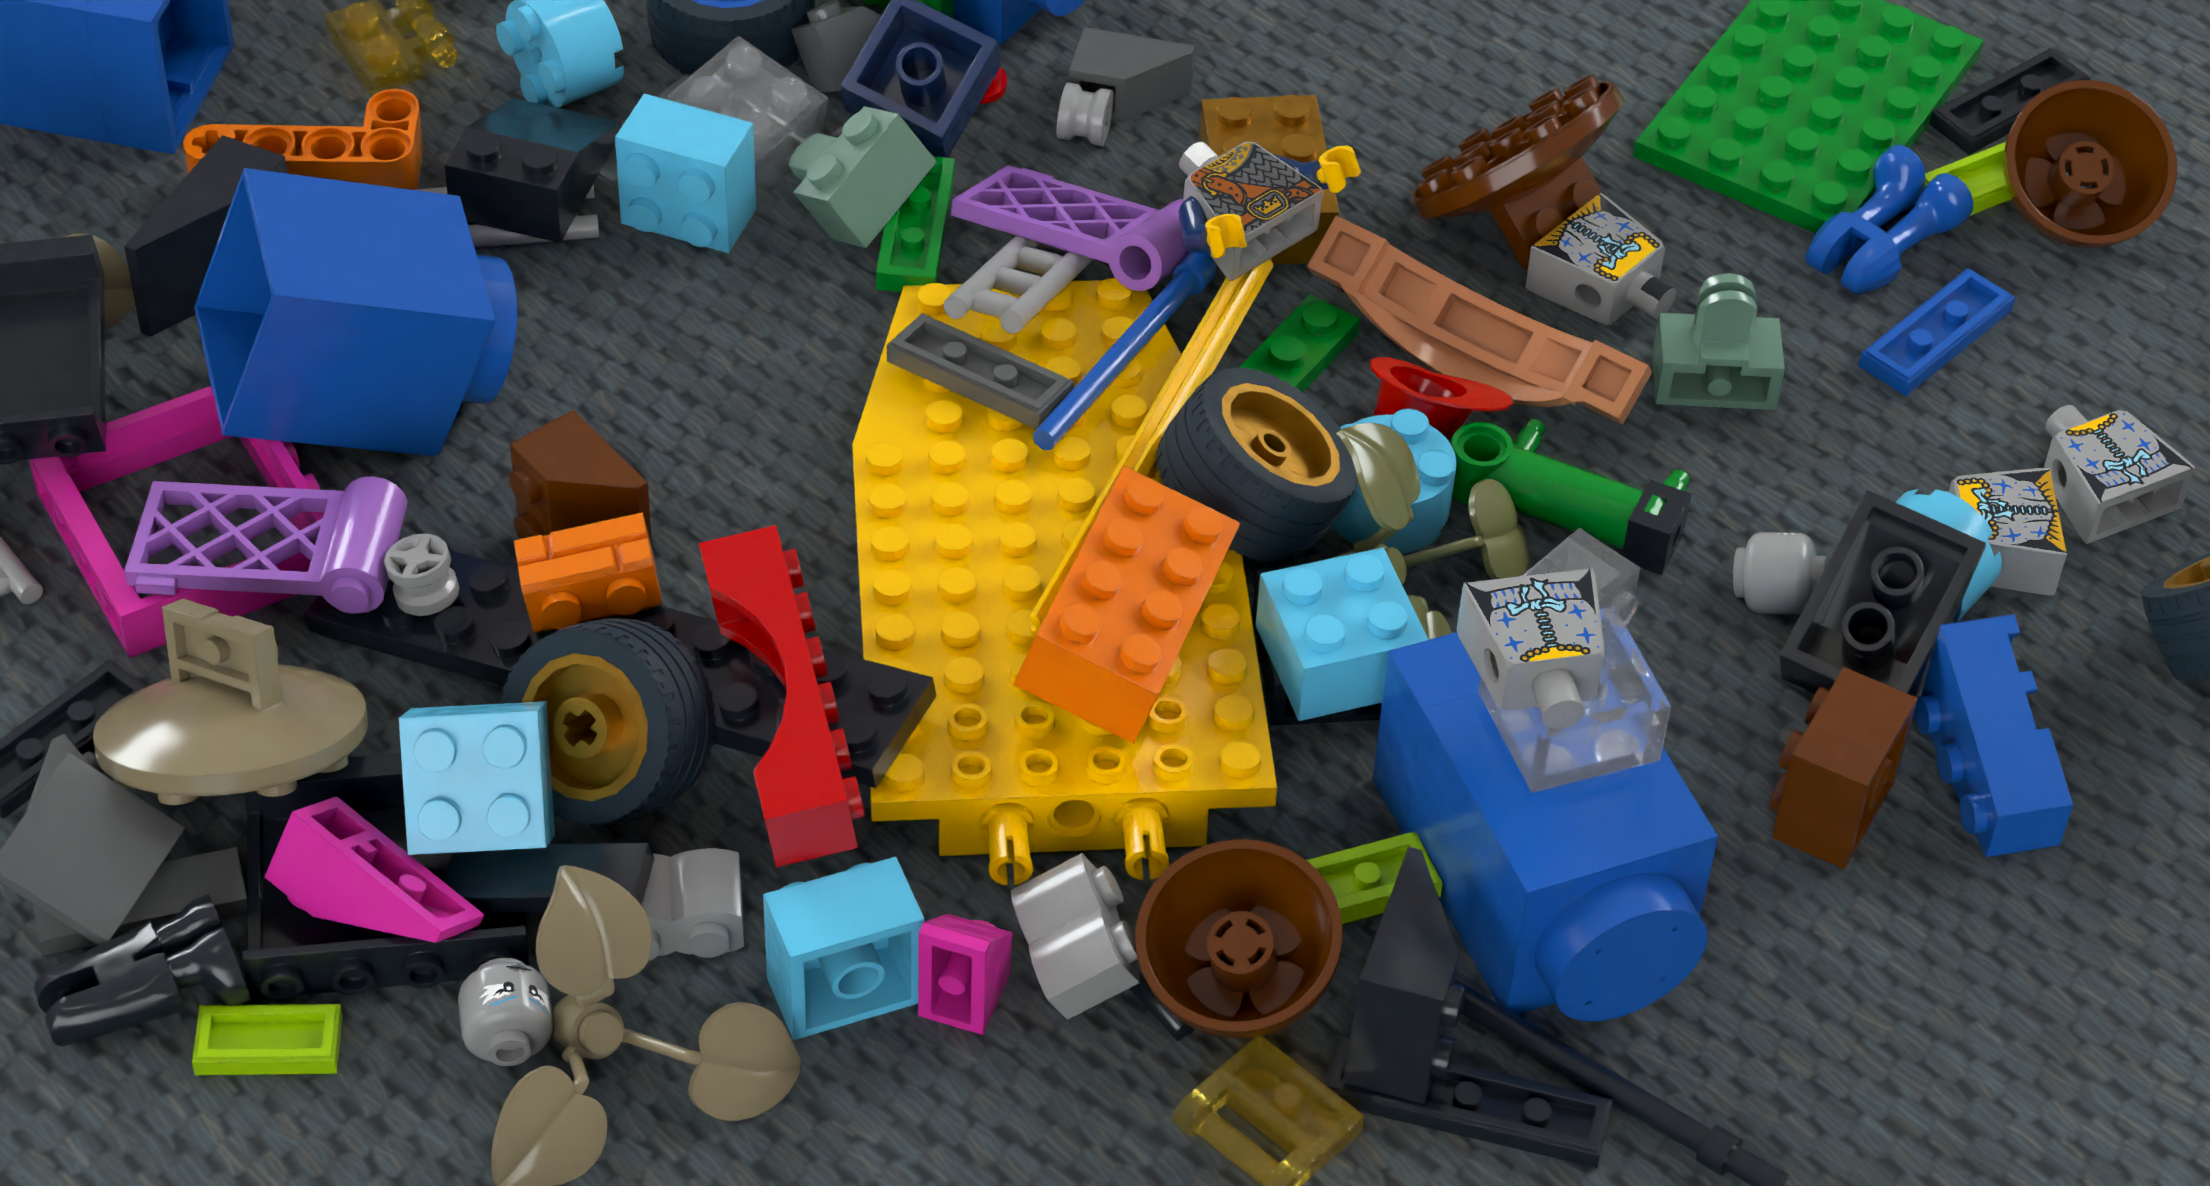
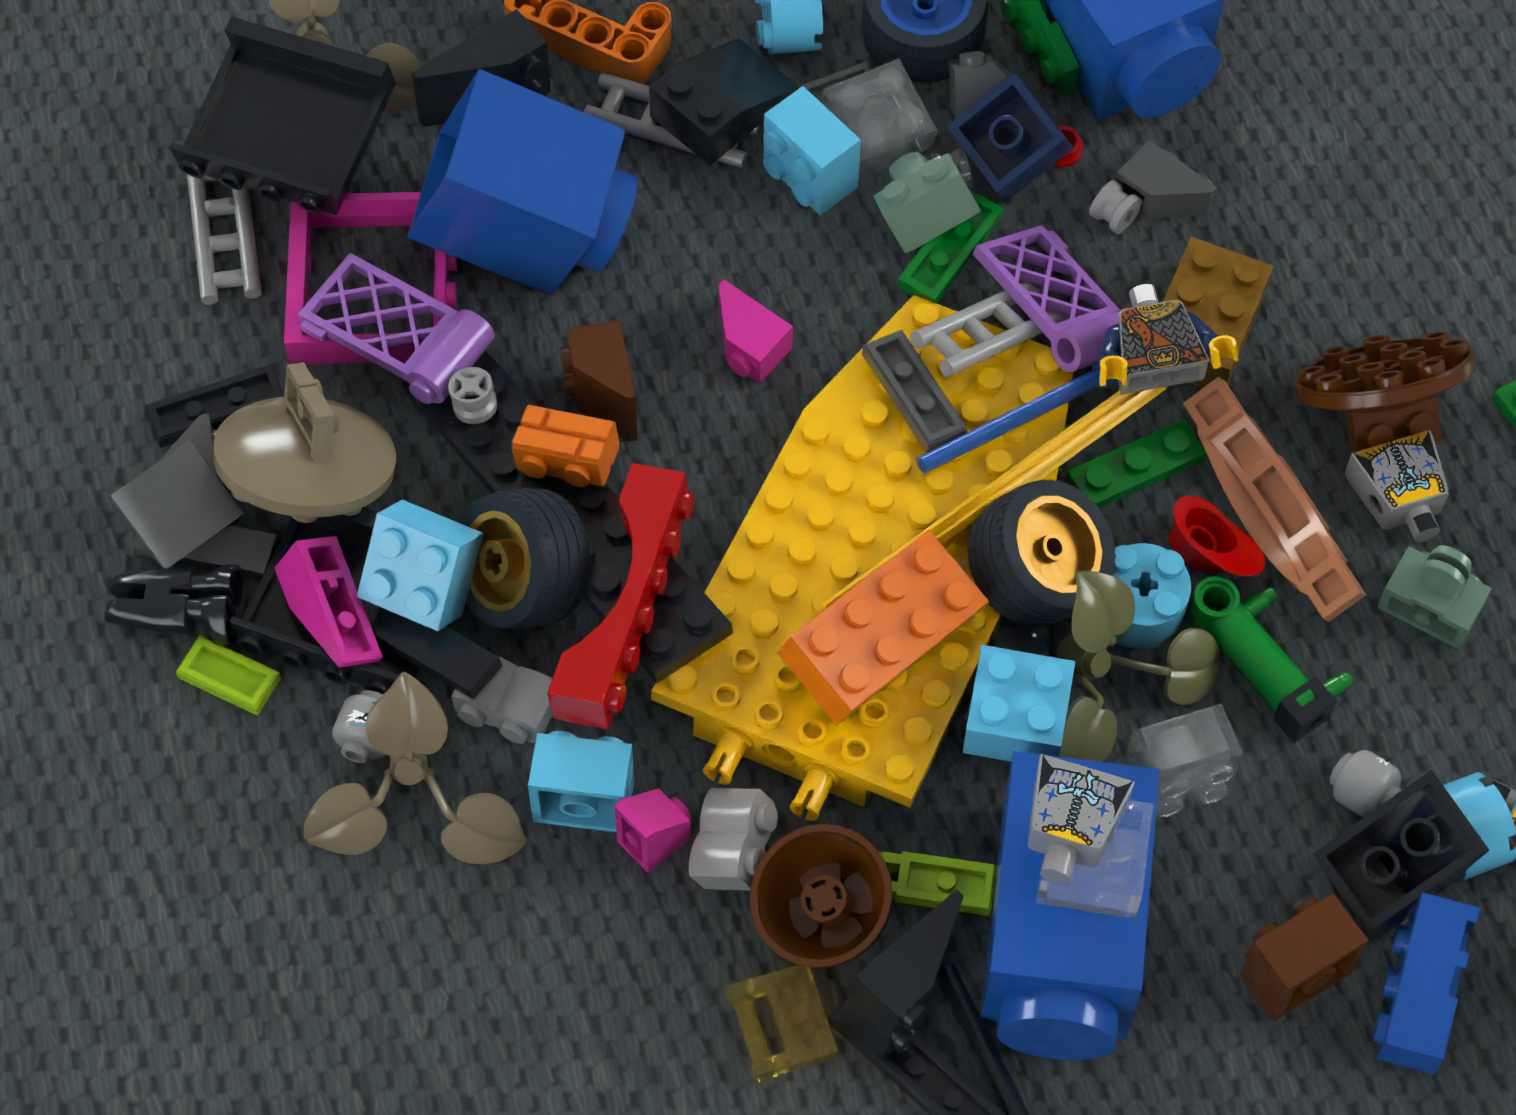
camera: 30 degrees right, 15 degrees up
(727, 393) = (751, 334): none -> dark pink slope

